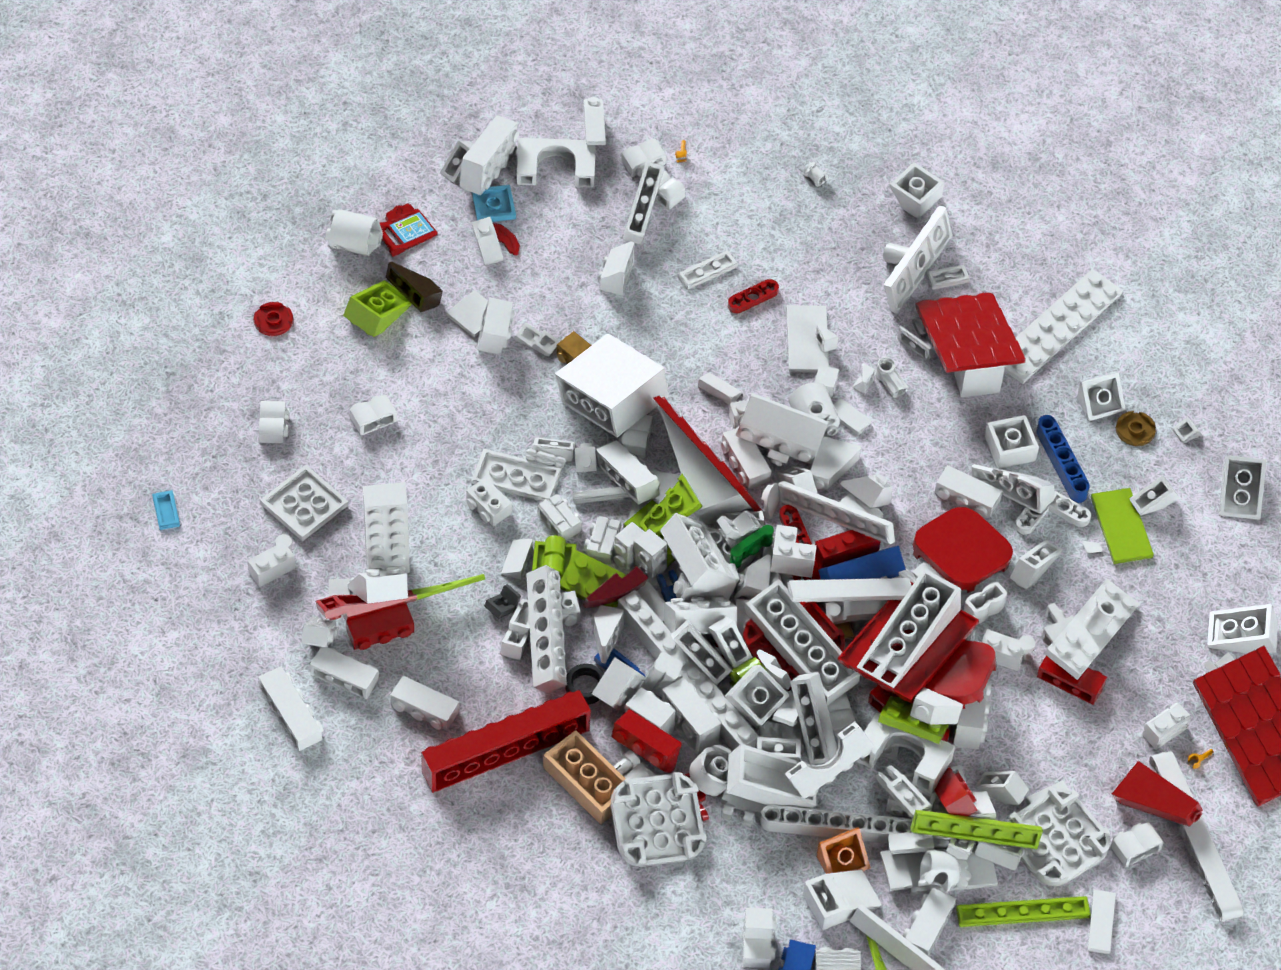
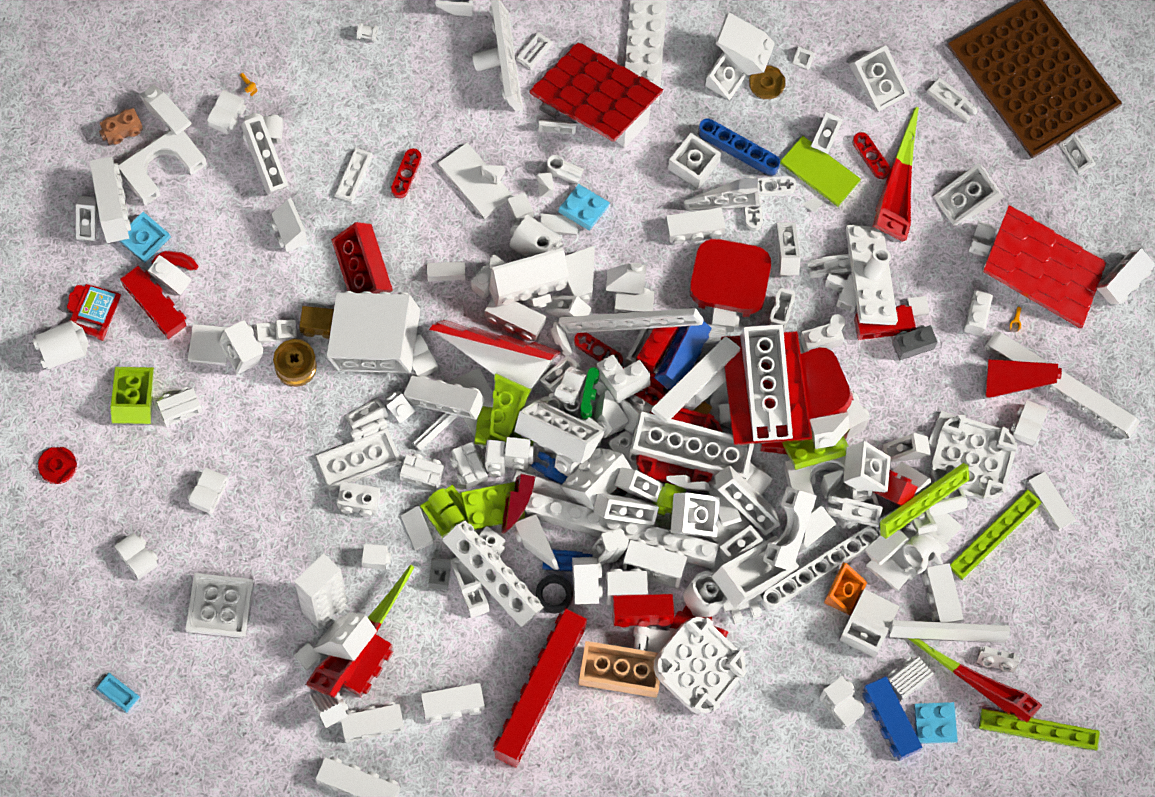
camera: 40 degrees left, 15 degrees up
(272, 562) = (241, 674): white hinge -> none
(407, 339) = (179, 406): none -> white brick
(414, 287) = (148, 356): dark brown slope -> none
(457, 253) = (153, 302): none -> red brick
(462, 553) = (375, 556): none -> white brick
(529, 368) = (295, 362): none -> pearl gold wheel
(548, 115) = (120, 126): none -> nougat brick
(658, 328) = (361, 260): none -> red slope
(855, 785) = (818, 524): none -> white slope
(882, 416) = (584, 207): none -> medium azure plate
(907, 759) = (830, 481): none -> white slope
(941, 759) = (866, 468): none -> white slope
(1065, 601) = (831, 264): none -> white hinge
(1085, 709) = (914, 342): none -> dark grey brick
(1116, 686) = (919, 306): none -> white tile
(1136, 379) = (744, 44): none -> white slope
(1165, 593) = (894, 205): none -> red plate
(1185, 537) = (868, 142): none -> red beam

